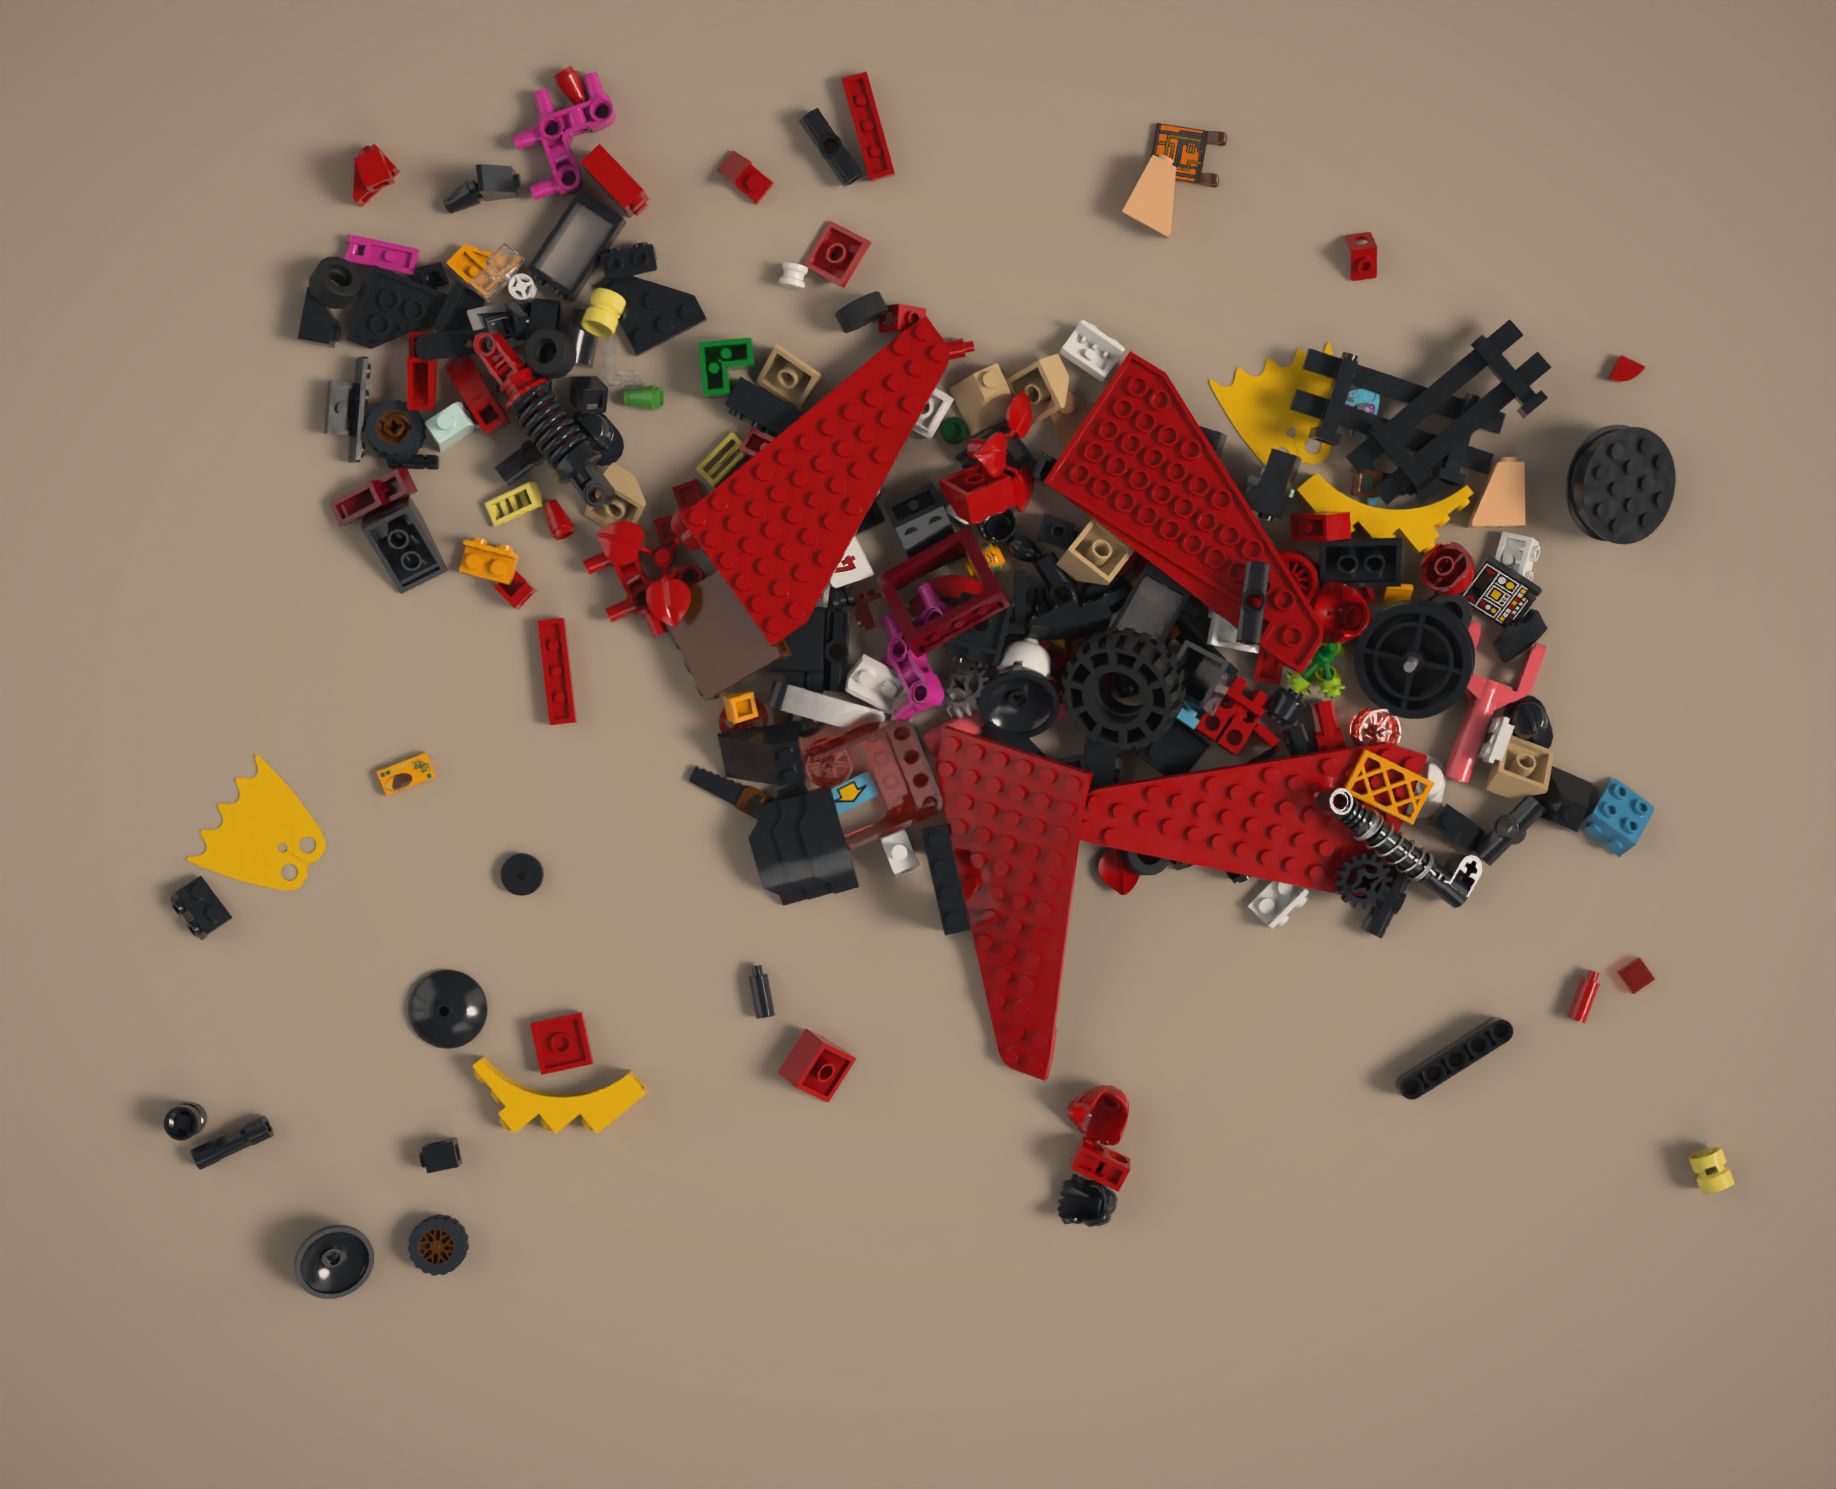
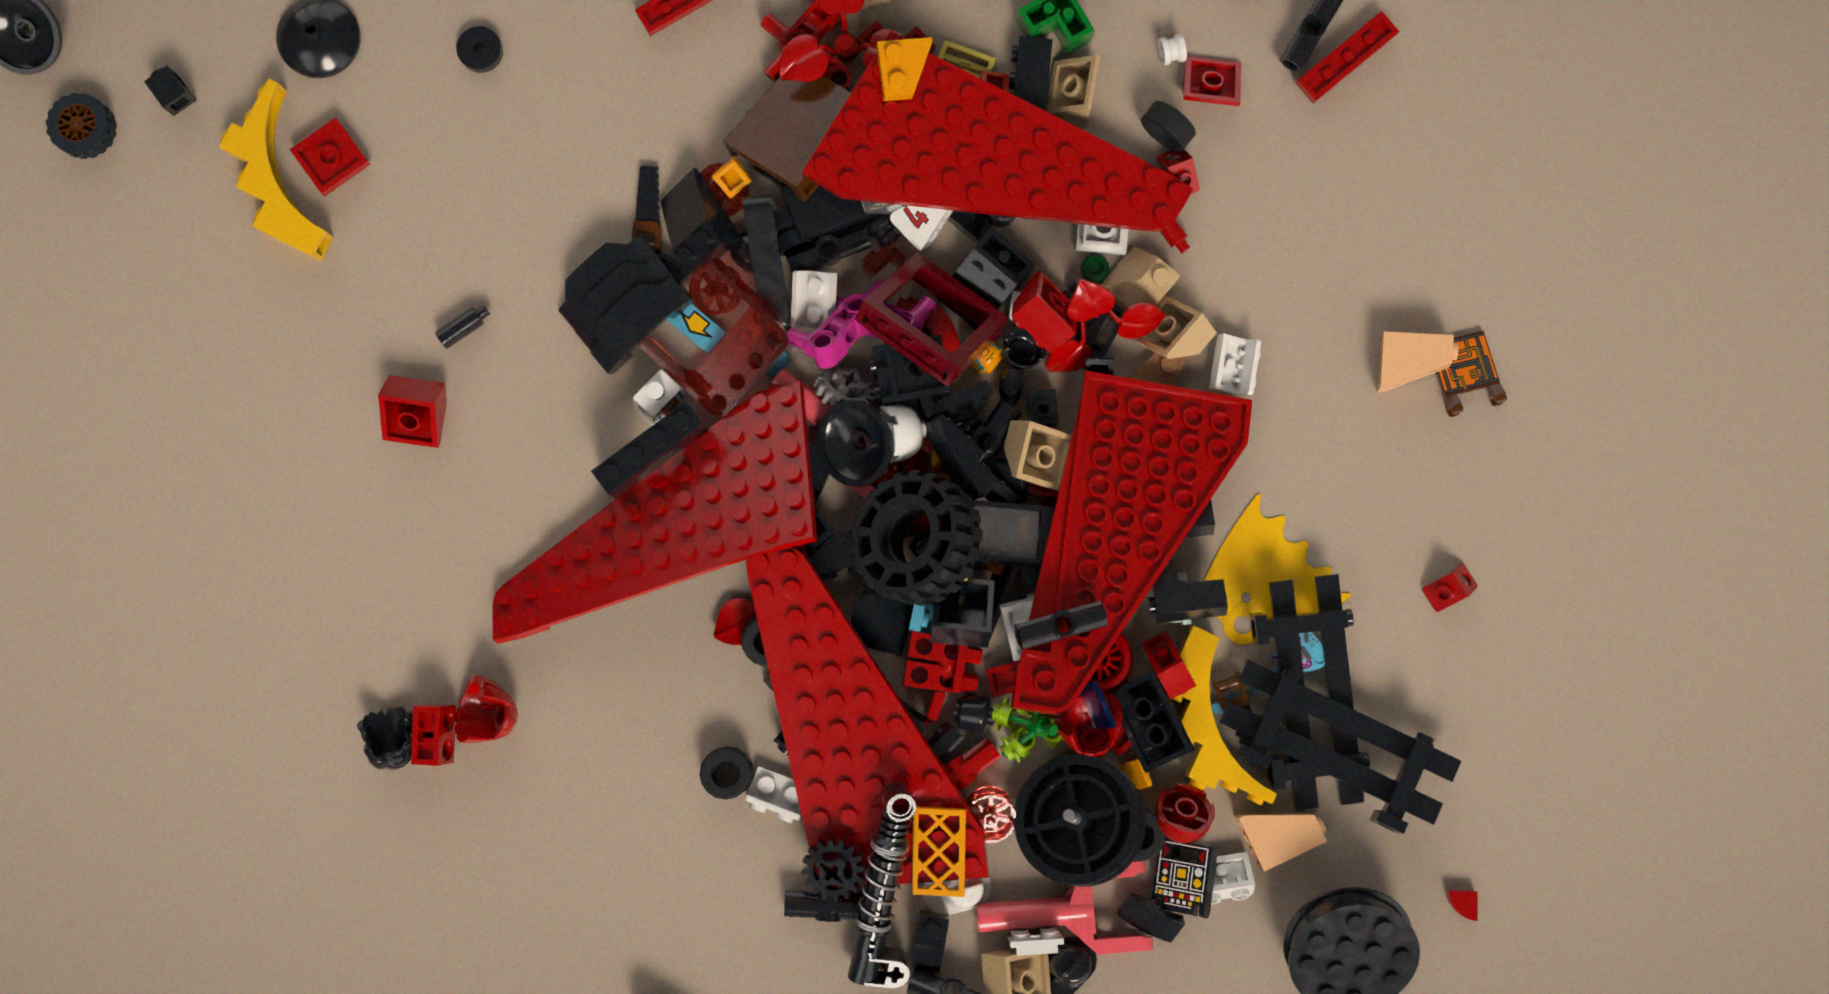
camera: 65 degrees right, 5 degrees down
(717, 520) = (901, 66): none -> light orange wing
(1253, 946) = (708, 774): none -> black tyre
(1331, 601) = (1097, 706): none -> clear blue piece

